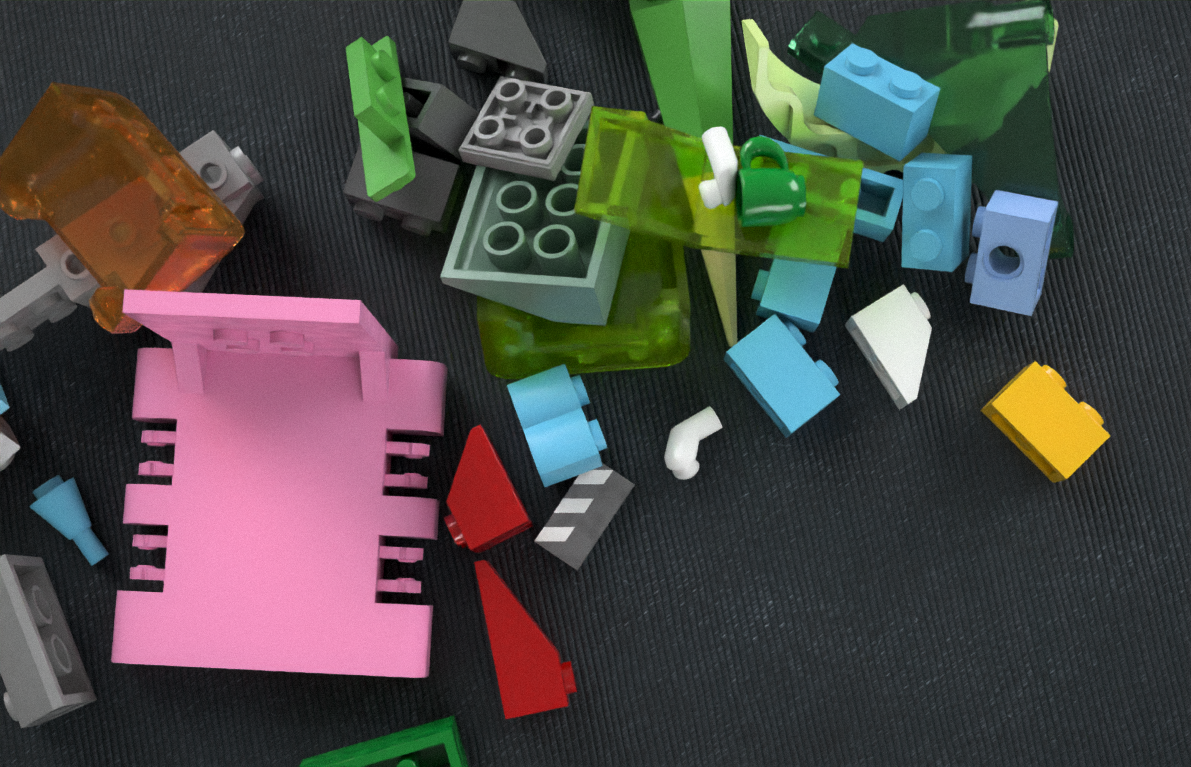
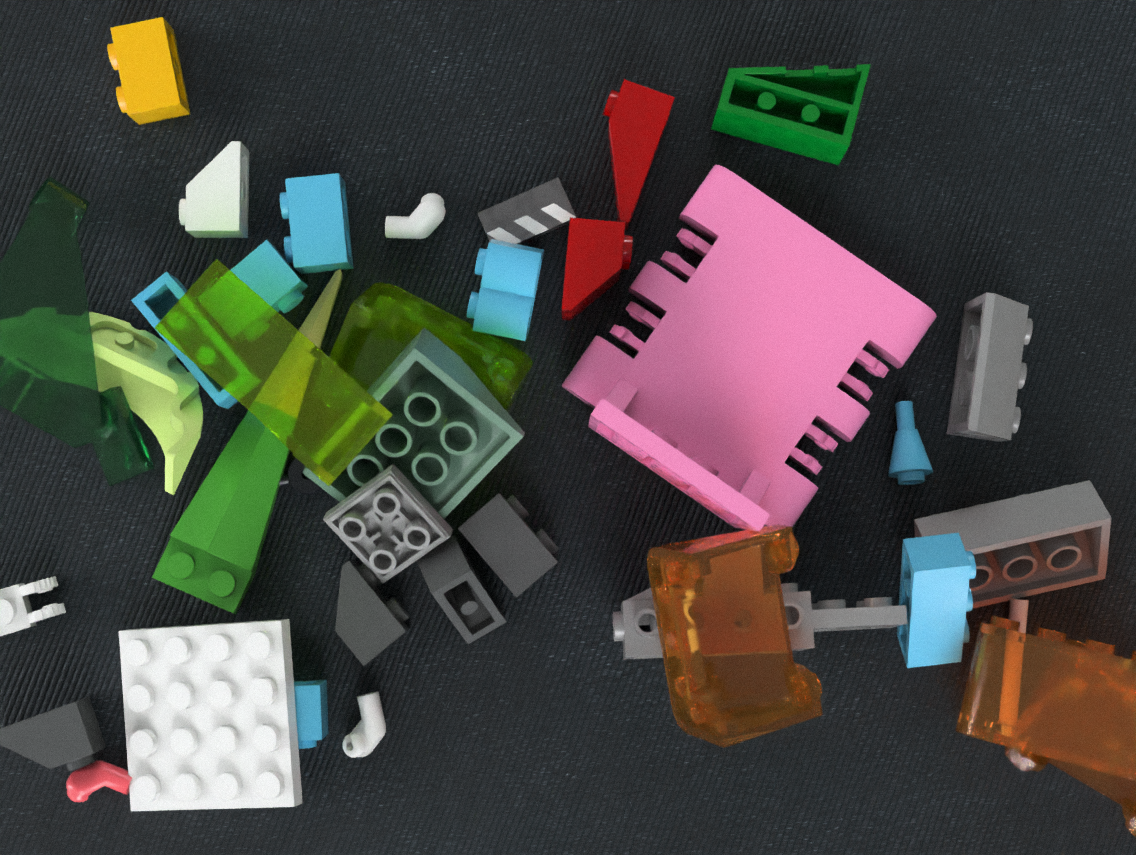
camera: 150 degrees left, 5 degrees up
(380, 116) = (493, 598): bright green bracket -> none
(724, 167) = (260, 386): white arm -> none
(767, 194) = (241, 345): green piece -> none
(876, 101) = (114, 374): medium azure brick -> none
(936, 211) = (124, 267): medium azure brick -> none
(1023, 225) = (69, 211): light blue brick -> none

